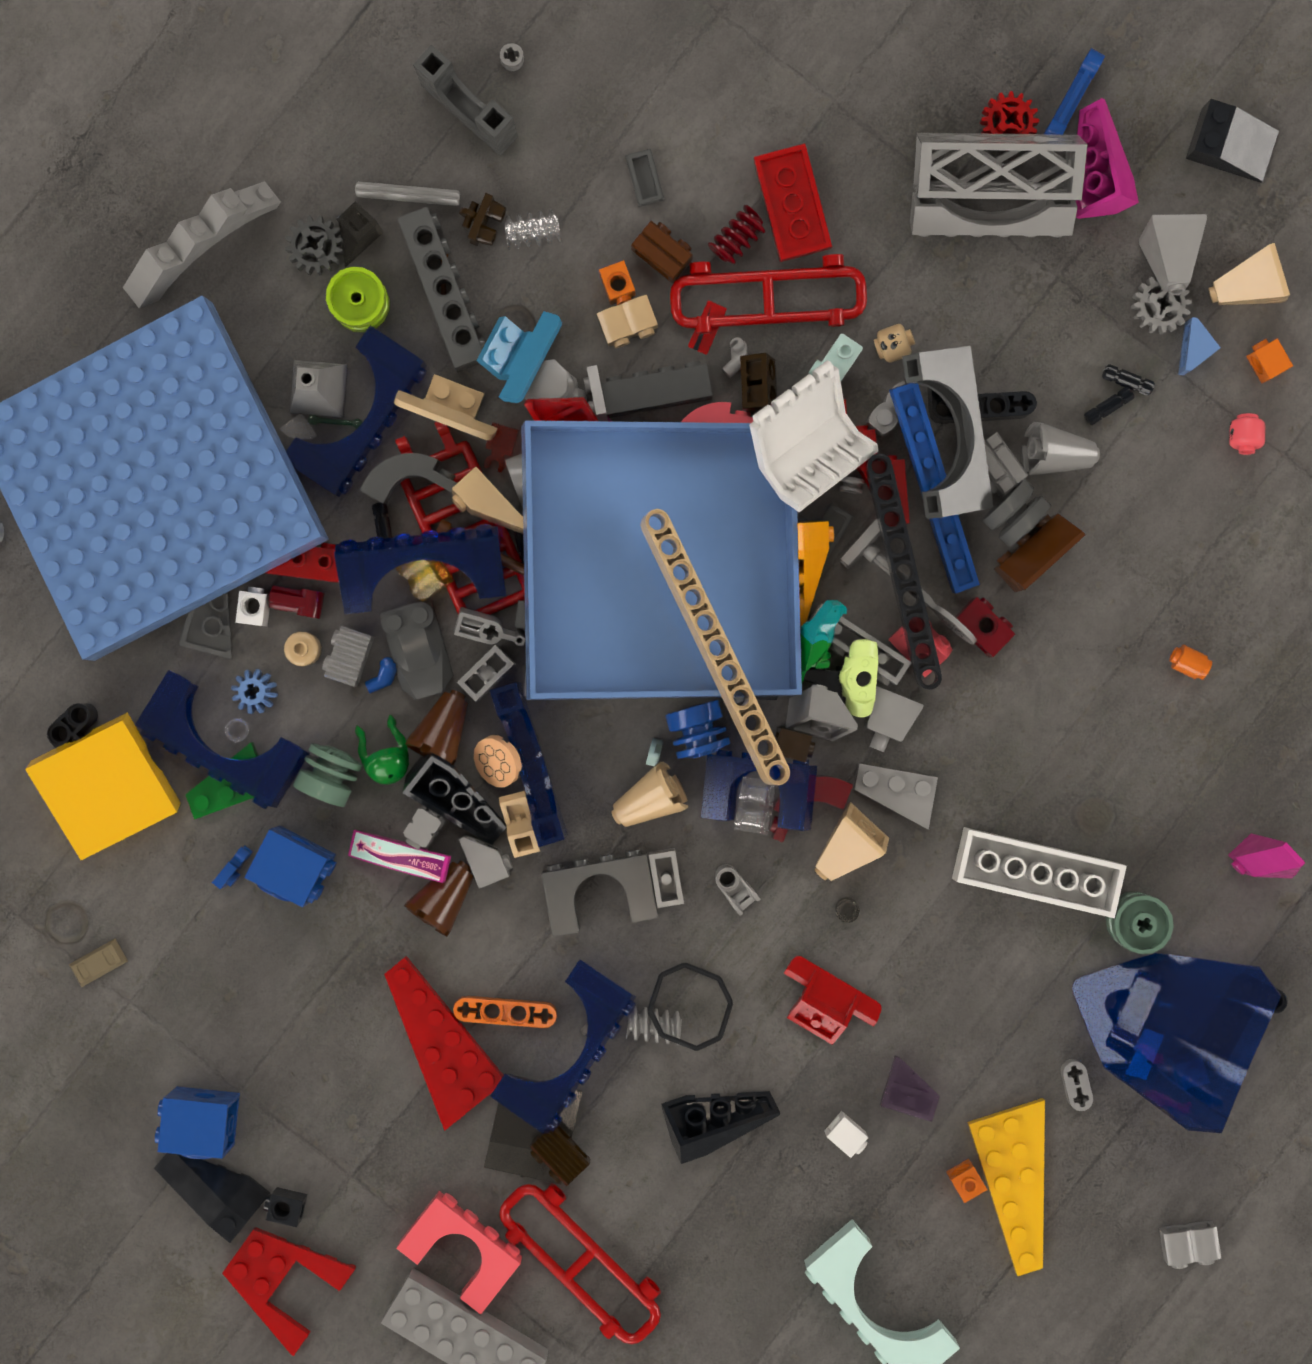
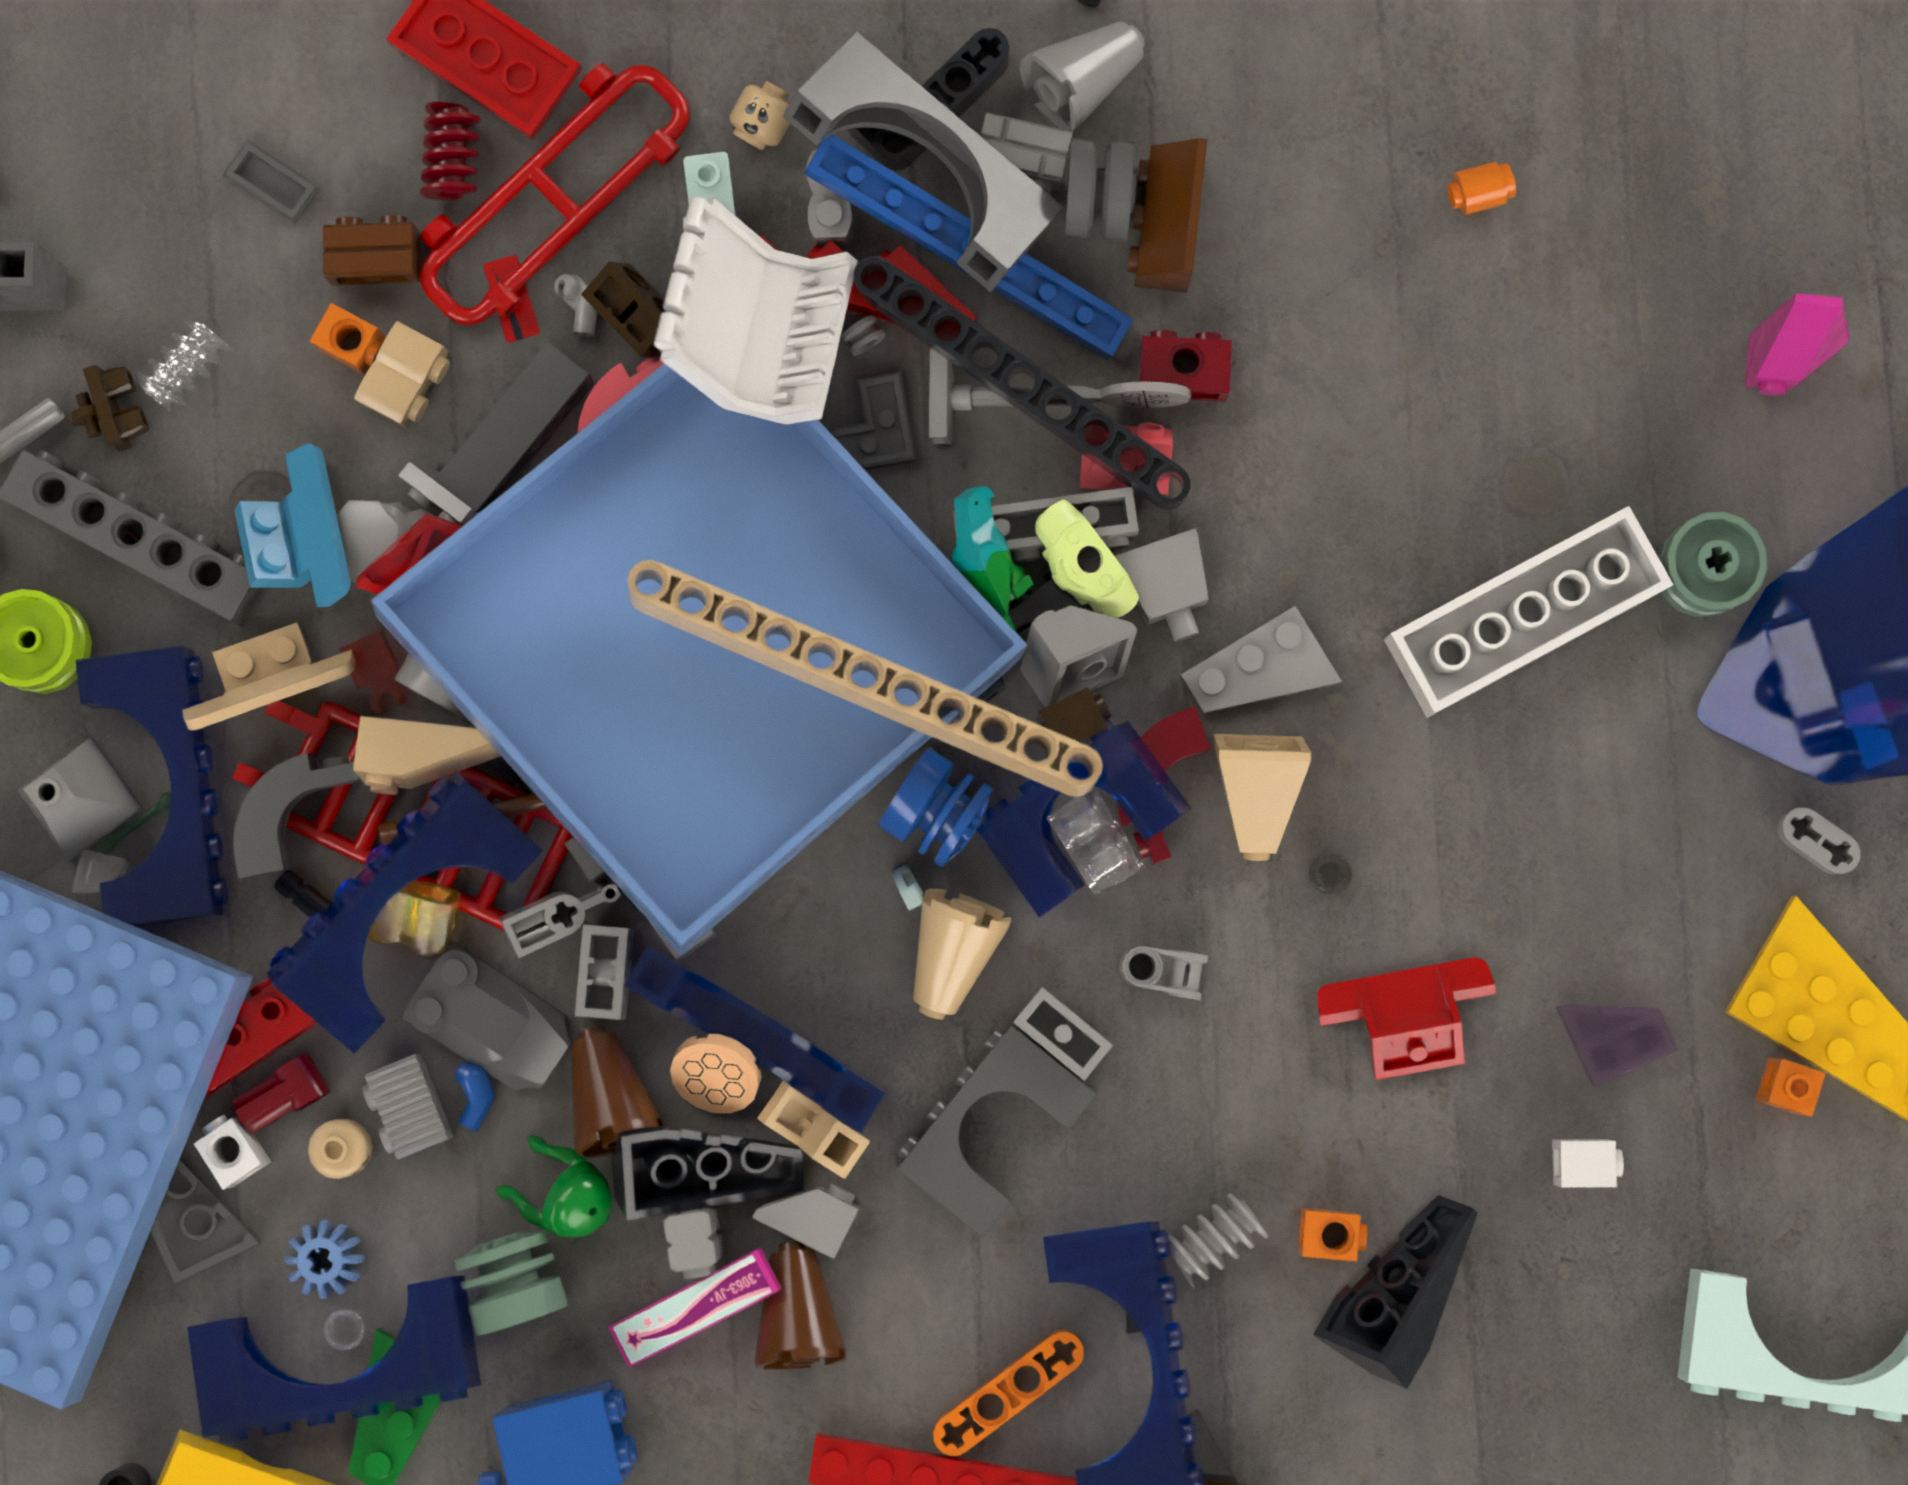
camera: 30 degrees left, 5 degrees down
(678, 1041) = (1260, 1230): black piece -> none
(702, 1057) = (1310, 1234): none -> orange brick
(812, 554) = (884, 455): light orange wedge -> none

